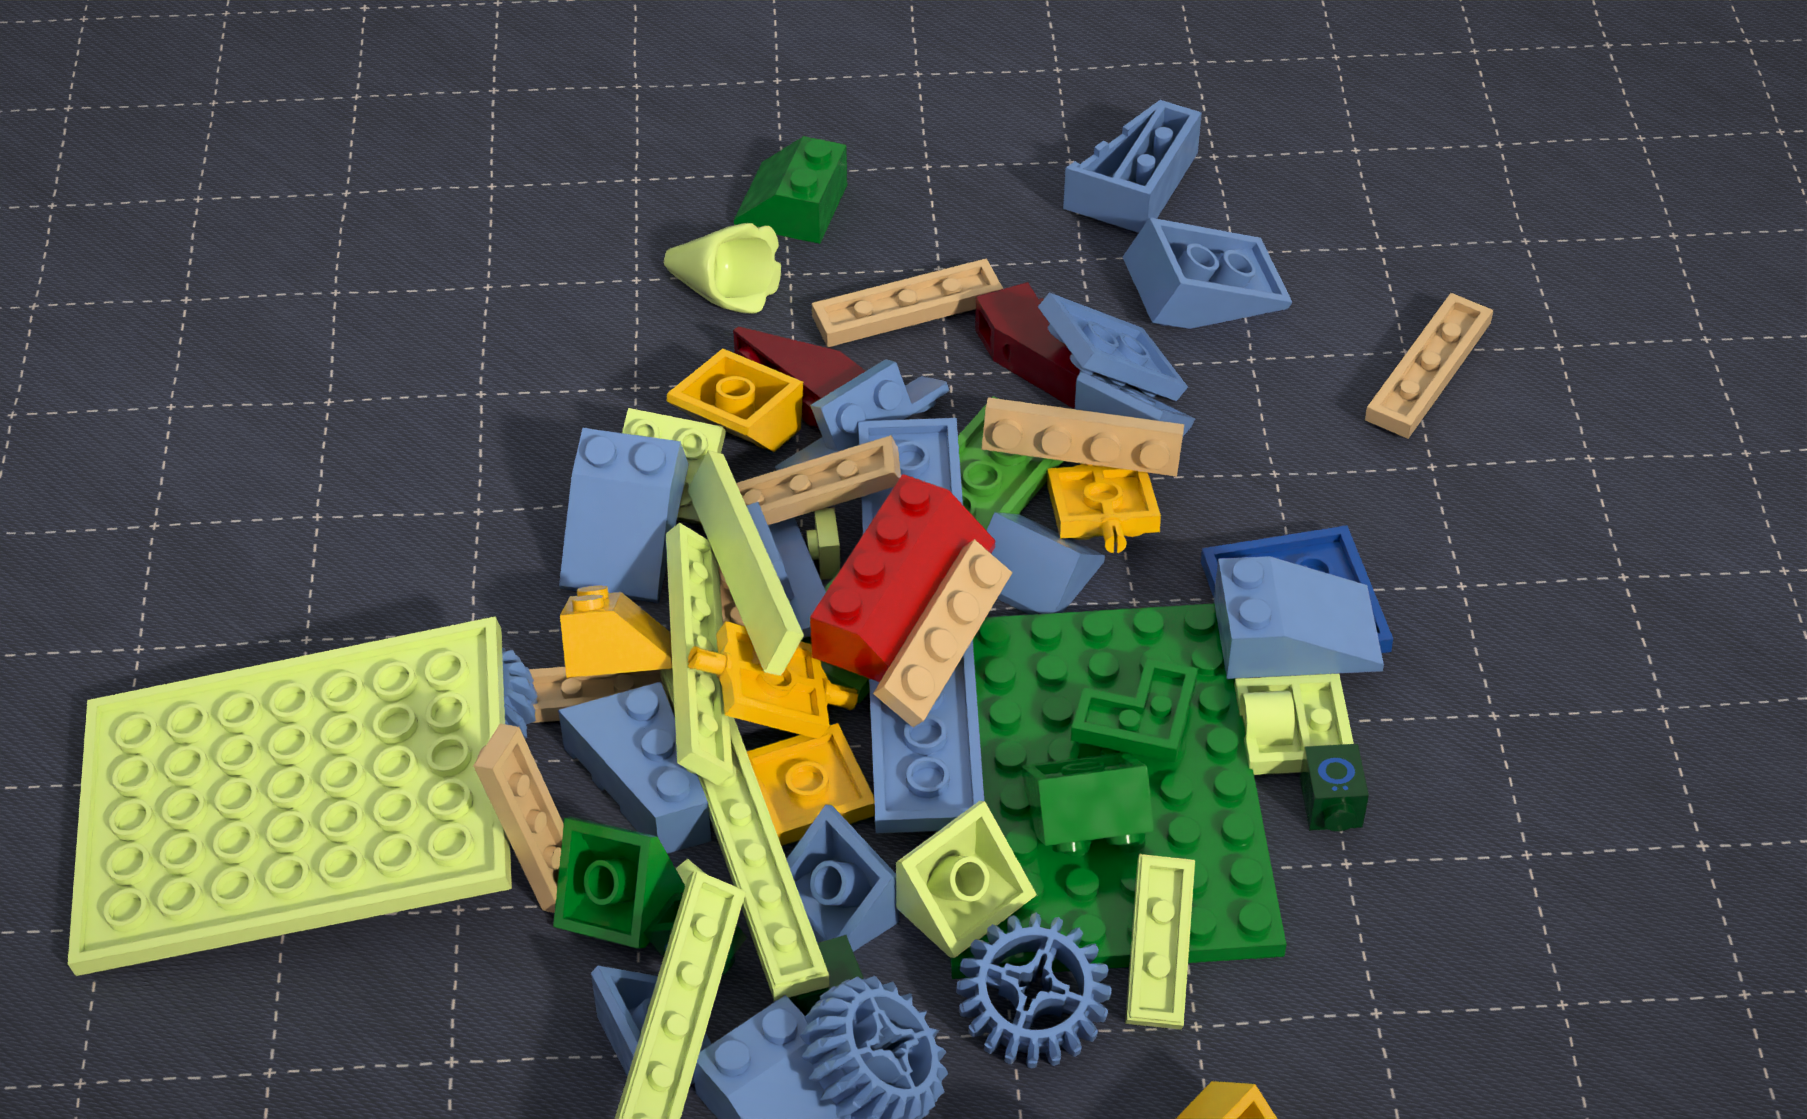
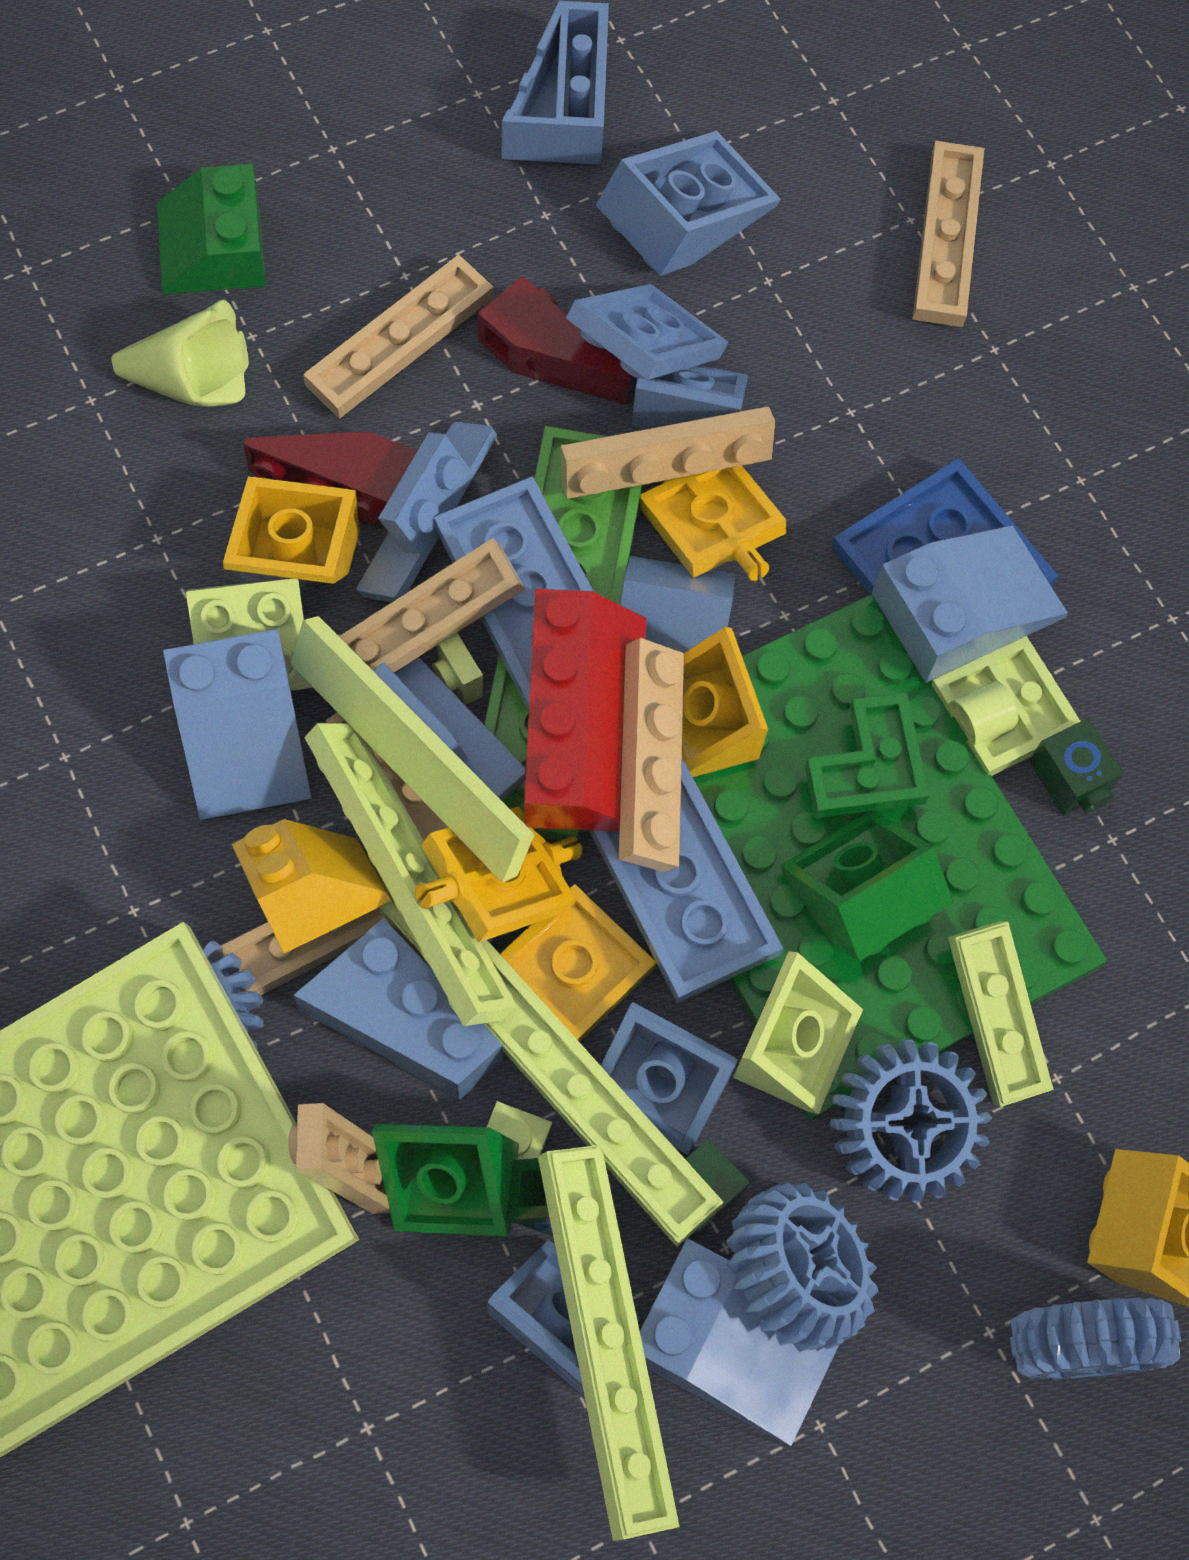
camera: 30 degrees left, 20 degrees up
(1018, 630) = (719, 707): none -> yellow slope

